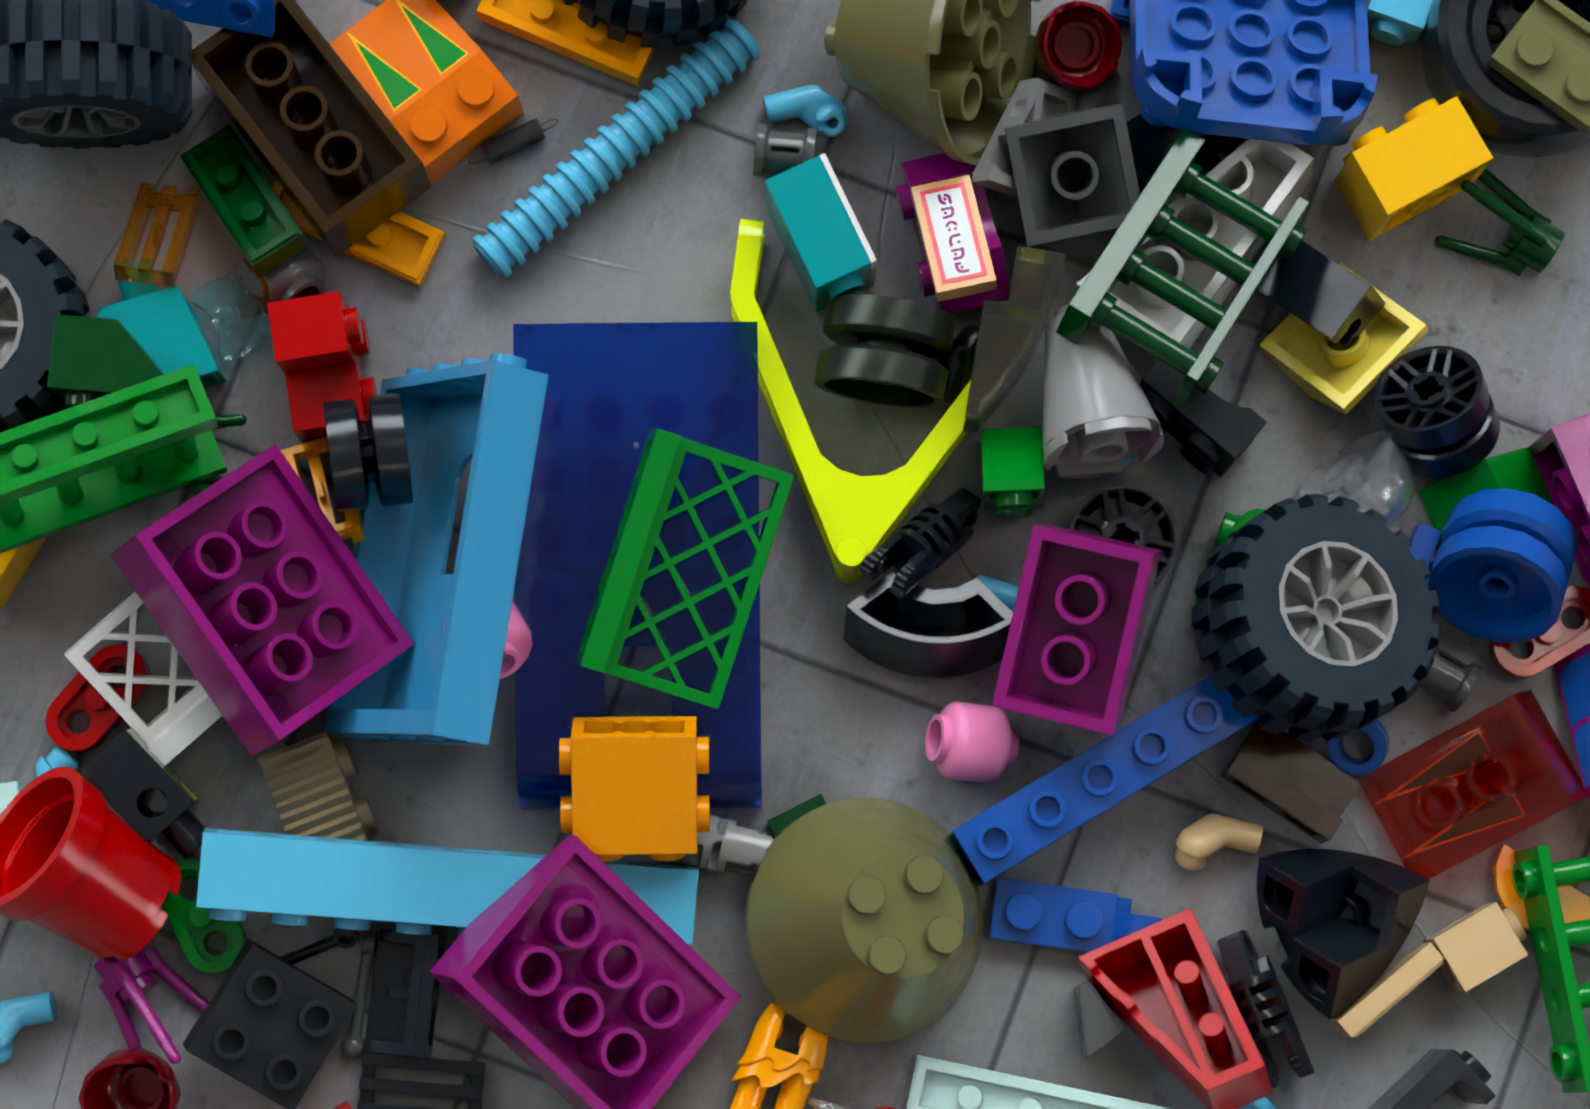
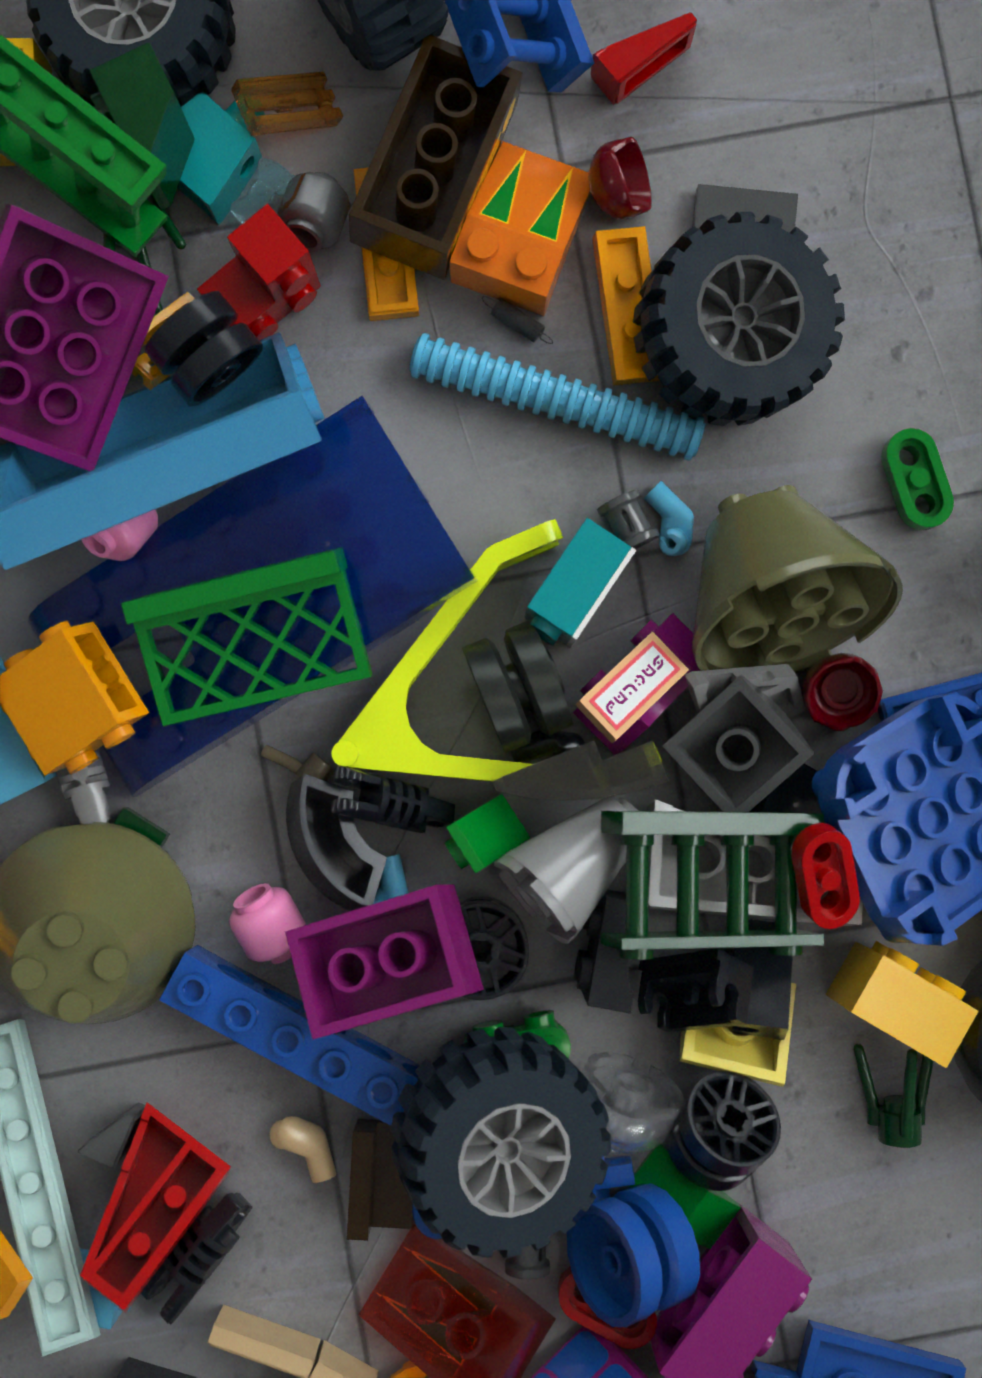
camera: 55 degrees right, 5 degrees up
(245, 201) = (344, 151): dark green tile -> none
(837, 606) = (313, 766): none -> dark tan hand
(1061, 916) = (183, 1072): blue hinge -> none
(1238, 158) = (825, 870): none -> red plate
(1284, 354) = (696, 990): none -> black hinge
(1337, 919) = (296, 1273): black brick -> none

